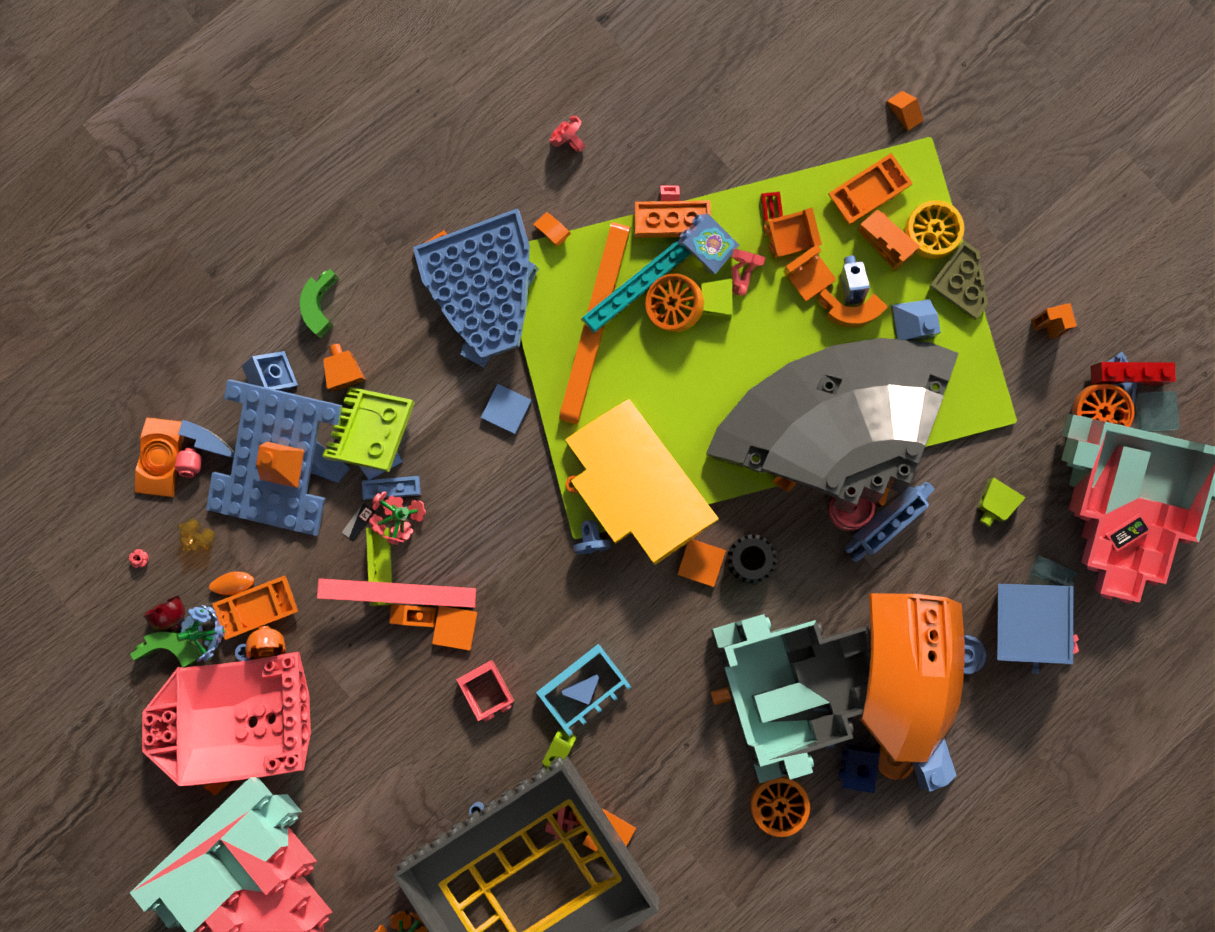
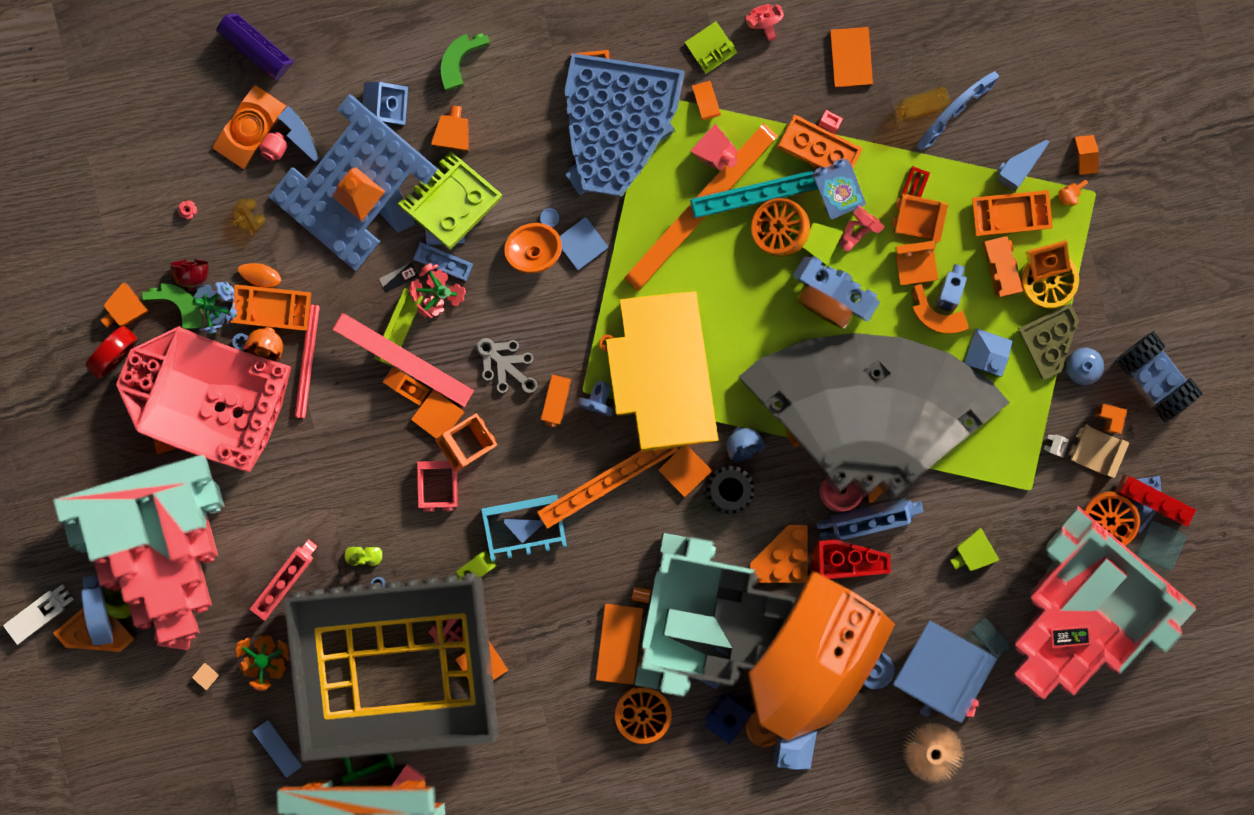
camera: 20 degrees right, 5 degrees up
(121, 675) = (123, 307): none -> orange torso
(124, 724) = (111, 352): none -> red piece
(127, 383) = (254, 46): none -> dark purple brick
(313, 641) = (306, 365): none -> coral axle
(387, 853) = (283, 580): none -> coral hinge
(456, 788) = (370, 555): none -> lime piece
(464, 434) = (532, 240): none -> orange dish
(466, 401) = (549, 217): none -> medium blue piece
(483, 653) = (452, 450): none -> orange window
(491, 550) = (503, 363): none -> light grey plant
(533, 183) = (711, 47): none -> lime hinge
(553, 559) = (556, 400): none -> orange window
(582, 265) = (715, 149): none -> coral torso
(633, 615) = (601, 485): none -> orange plate
(658, 130) = (851, 57): none -> orange tile
(724, 751) = (619, 644): none -> orange tile
(741, 511) = (744, 443): none -> medium blue cylinder
(743, 135) = (923, 104): none -> clear yellow window
(751, 350) = (825, 306): none -> dark orange piece
(752, 331) = (838, 286): none -> medium blue brick
(781, 103) = (955, 108): none -> medium blue tile
(831, 594) = (784, 557): none -> orange plate
(854, 147) = (1019, 166): none -> medium blue slope
(886, 569) = (844, 559): none -> red wedge
(910, 148) = (1070, 193): none -> orange piece
(926, 209) = (1049, 260): none -> orange slope
(1004, 290) = (1084, 366): none -> medium blue cylinder
(1020, 370) = (1059, 445): none -> white tile
(1057, 357) = (1098, 451): none -> tan panel
(1062, 703) = (925, 750): none -> light nougat piece
(1077, 263) = (1159, 377): none -> plate

